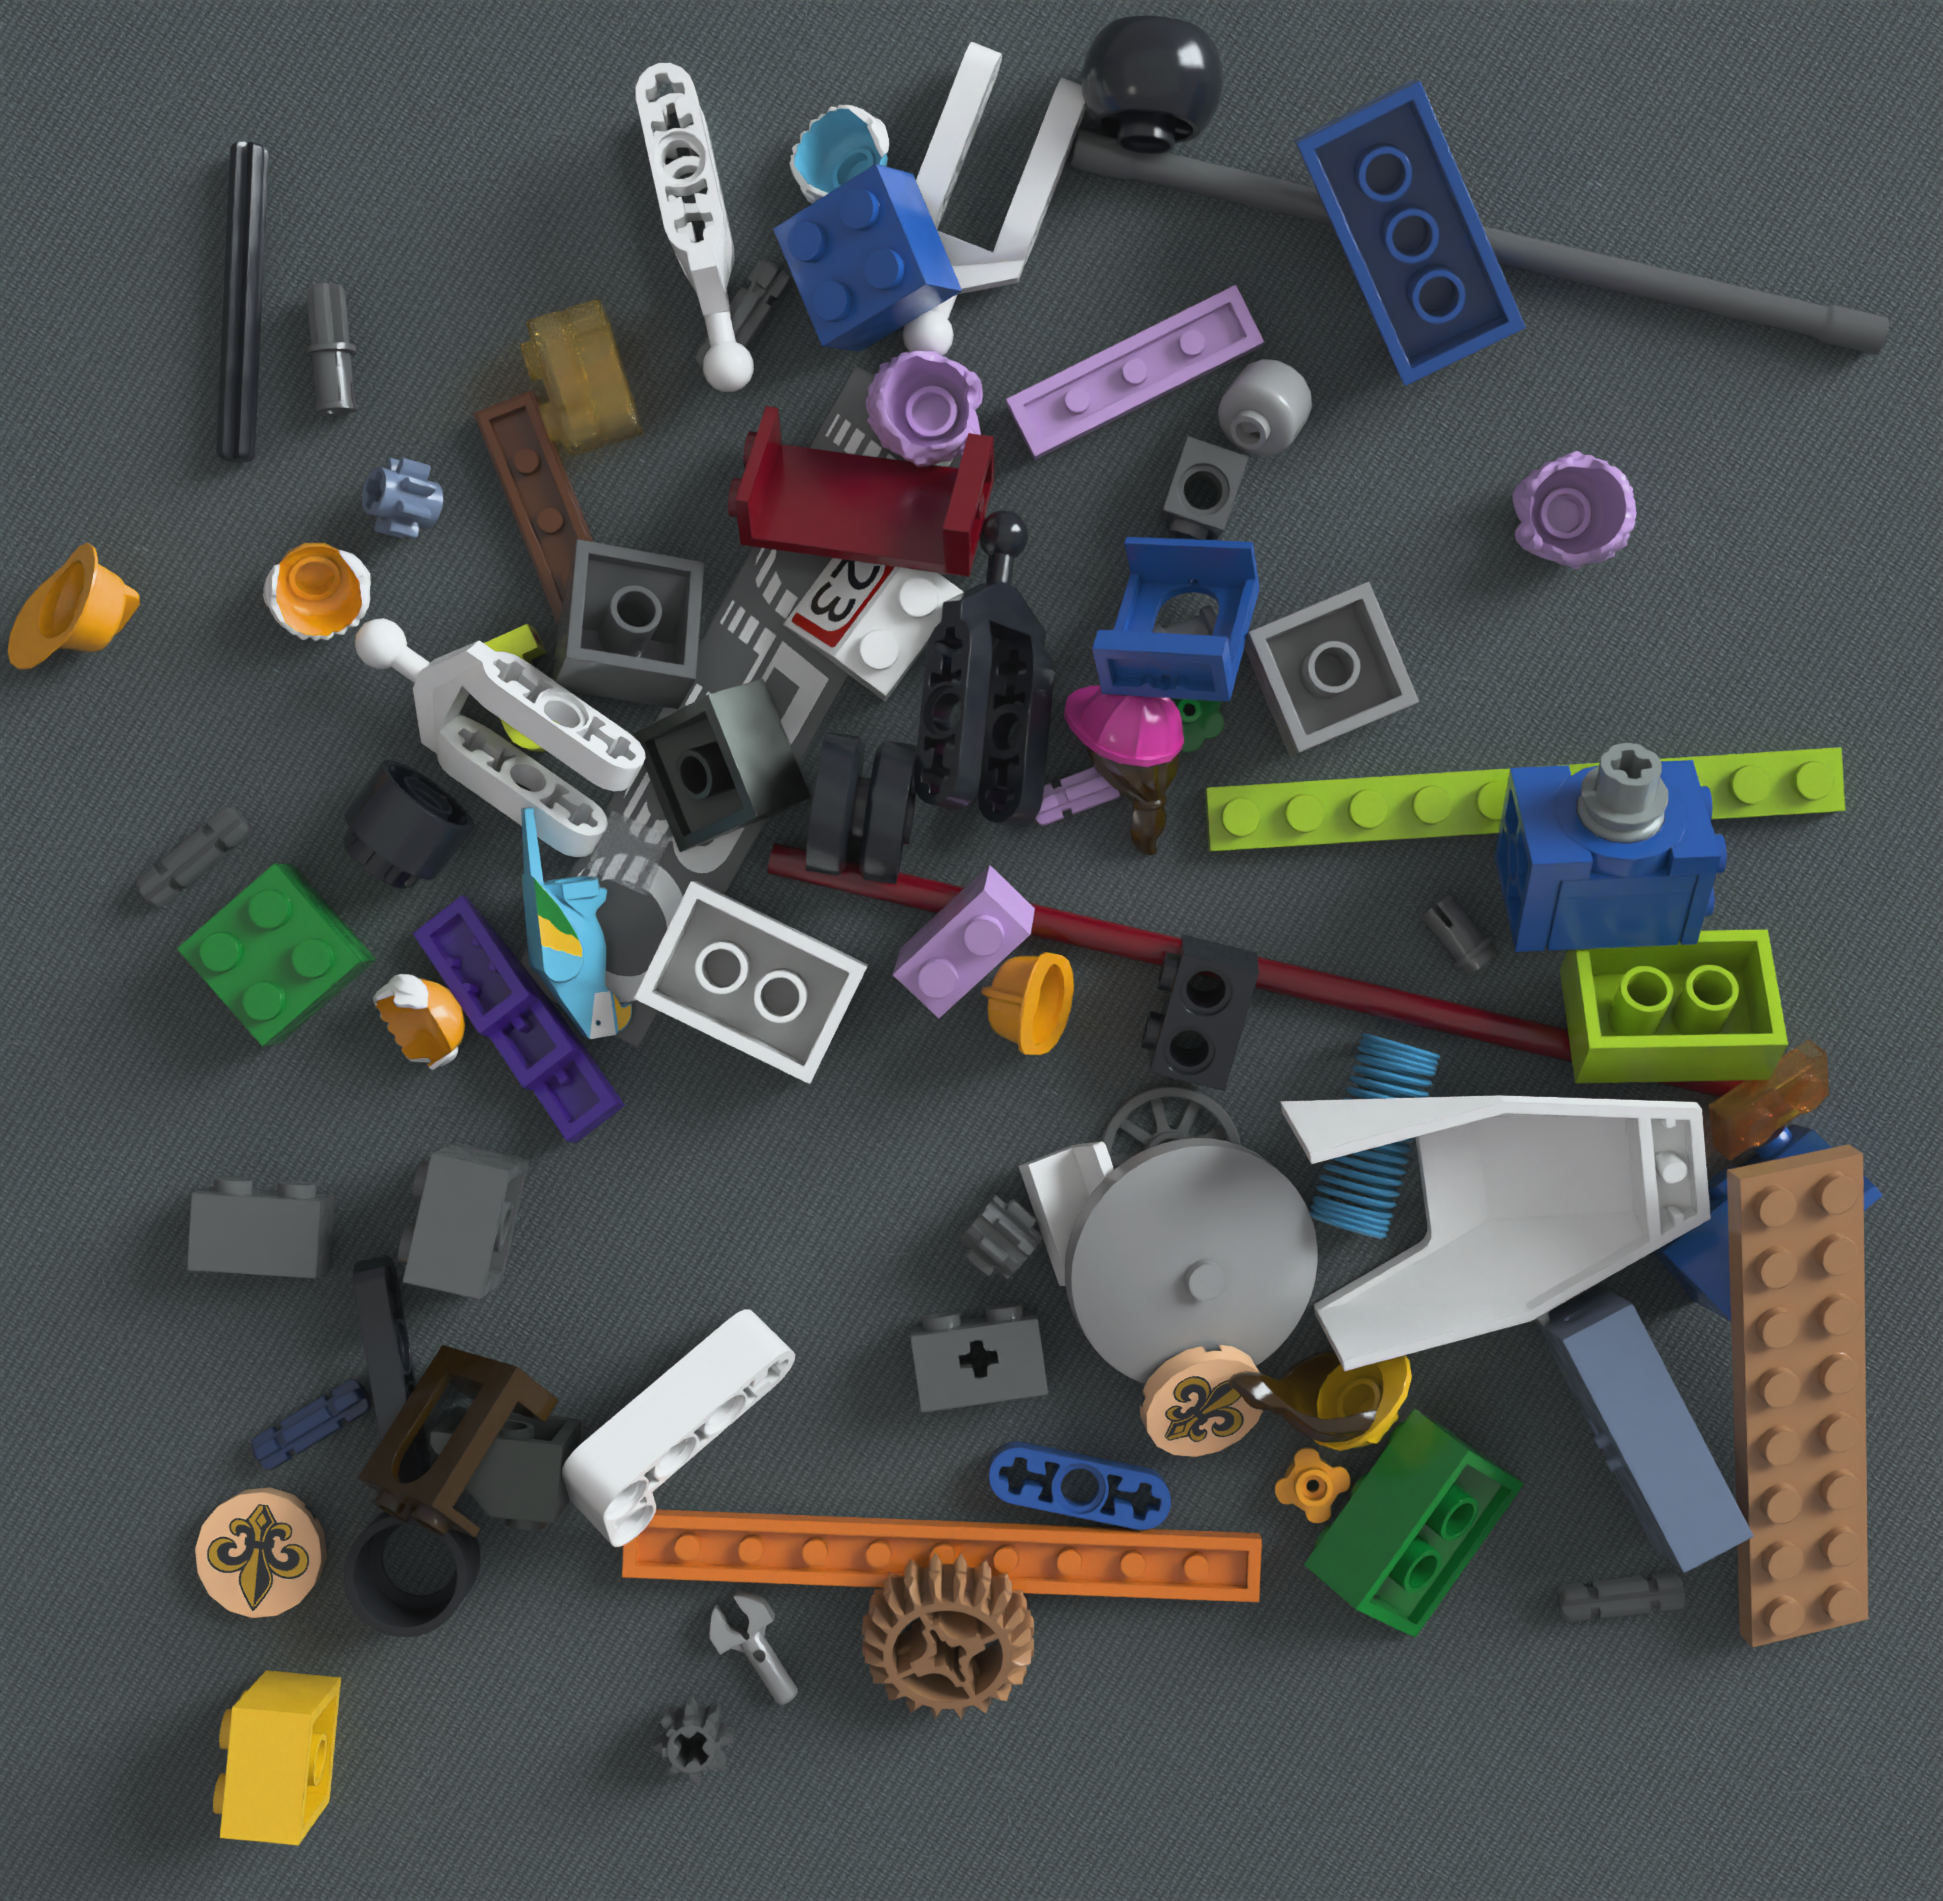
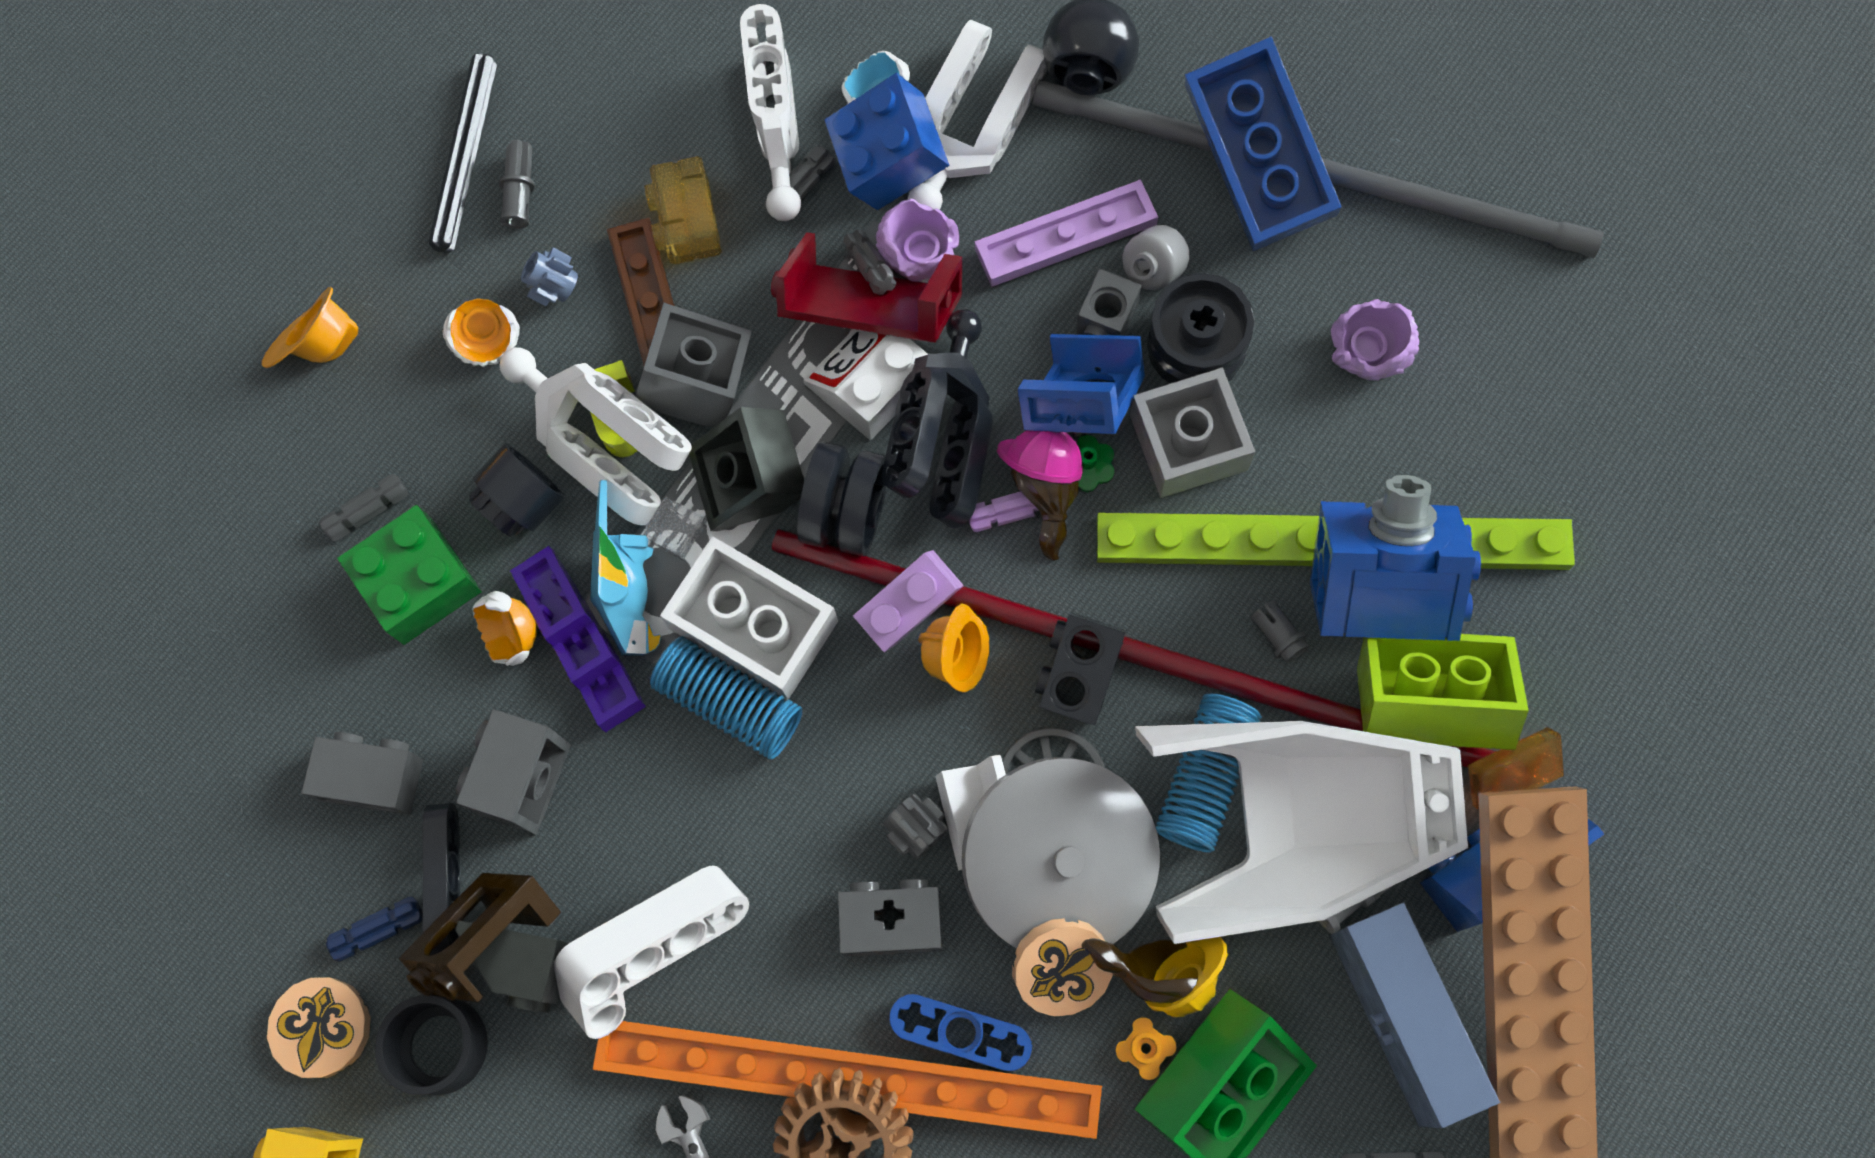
camera: 10 degrees right, 15 degrees down
(654, 1060) = (774, 735): none -> dark azure piece
(859, 443) = (869, 262): none -> dark grey axle
(1356, 487) = (1199, 327): none -> black wheel

